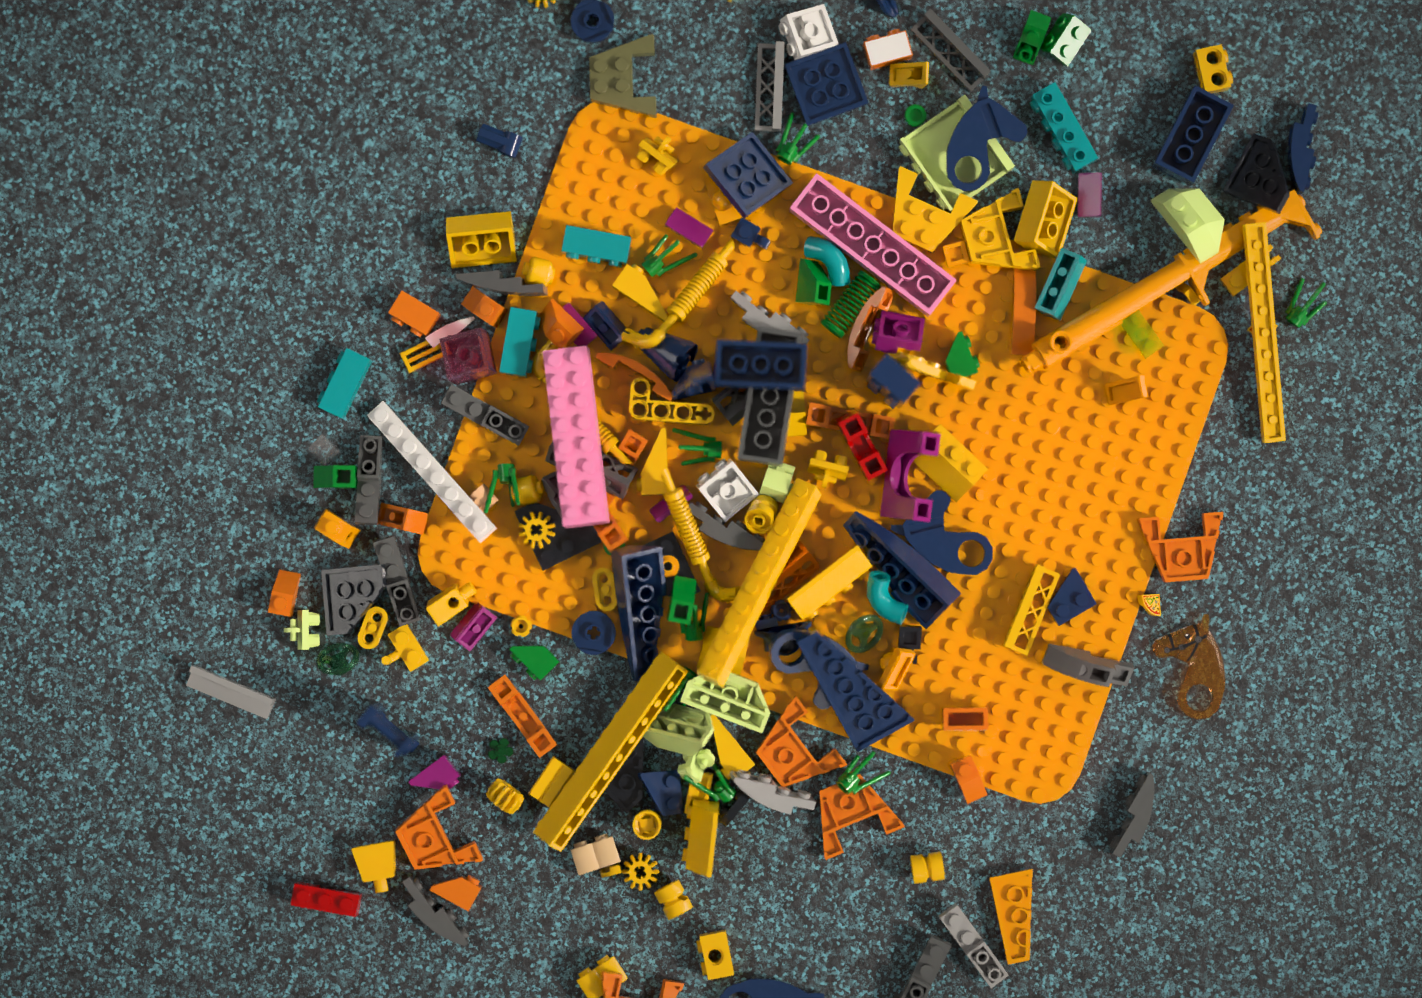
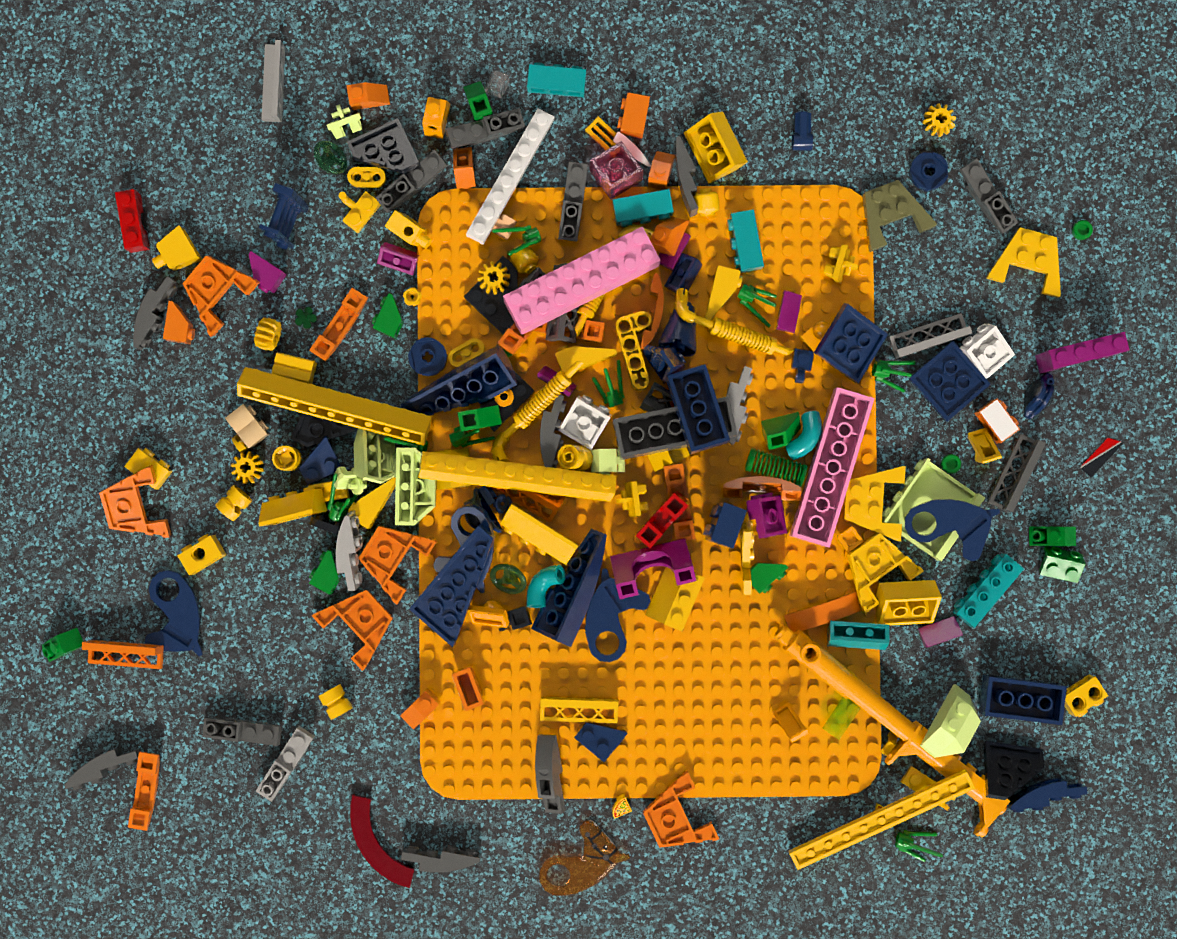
camera: 70 degrees right, 0 degrees up
(787, 826) = (326, 574): none -> green slope
(849, 781) = (382, 611): green plant -> none
(1013, 907) = (330, 784): light orange wing -> none
(1096, 887) = (370, 846): none -> dark red tile

